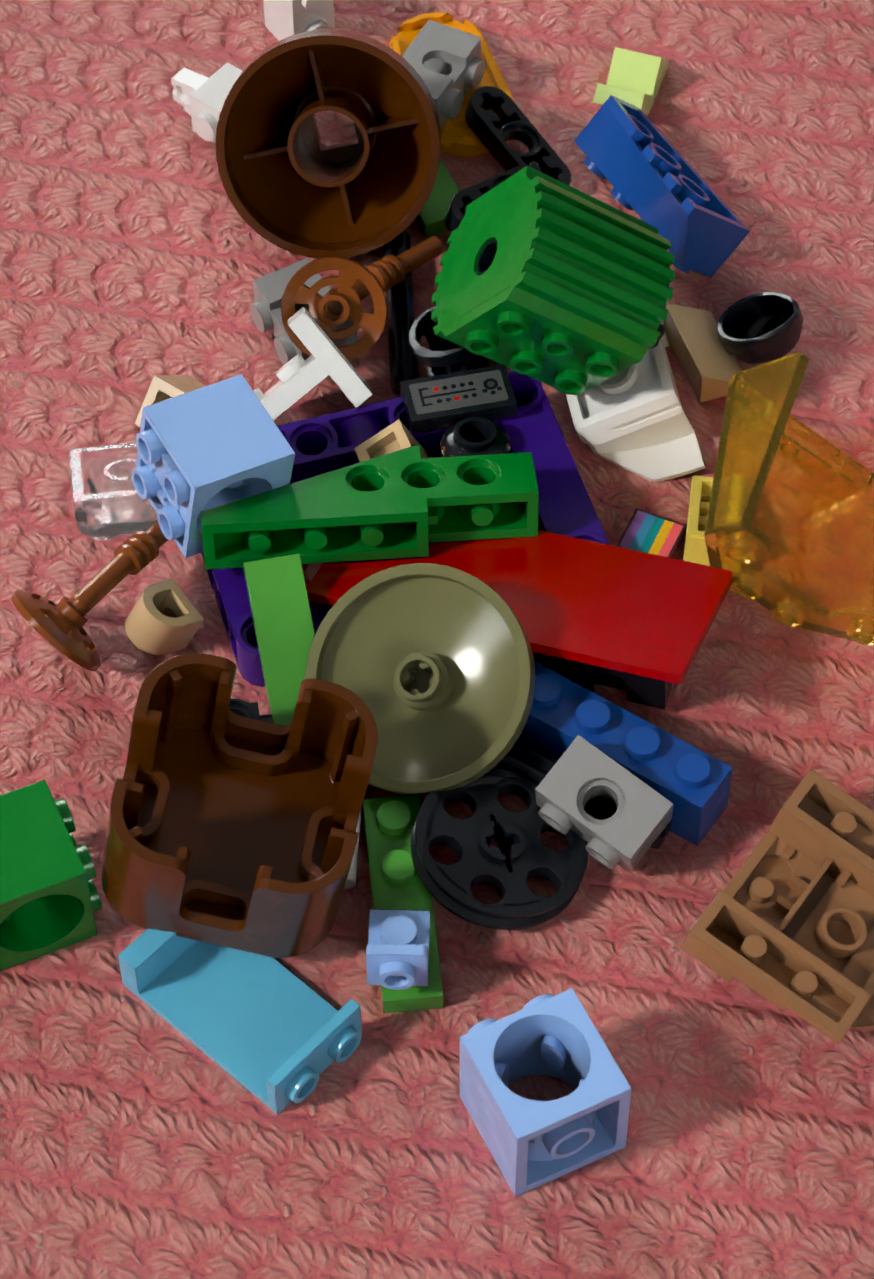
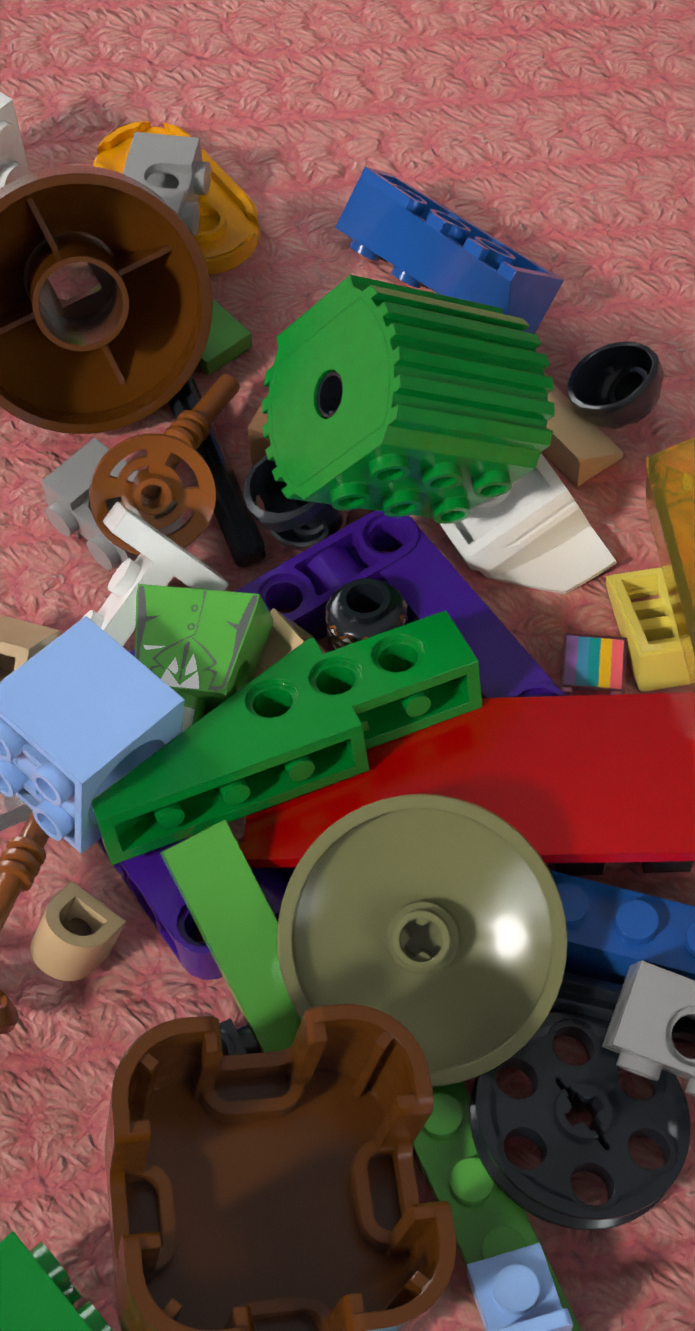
camera: 15 degrees left, 5 degrees up
(330, 424) = (200, 642): none -> bright green torso
(450, 397) = (327, 561): tile -> none
(511, 126) = (242, 228): black beam -> none
(633, 79) = (365, 142): yellowish green slope -> none

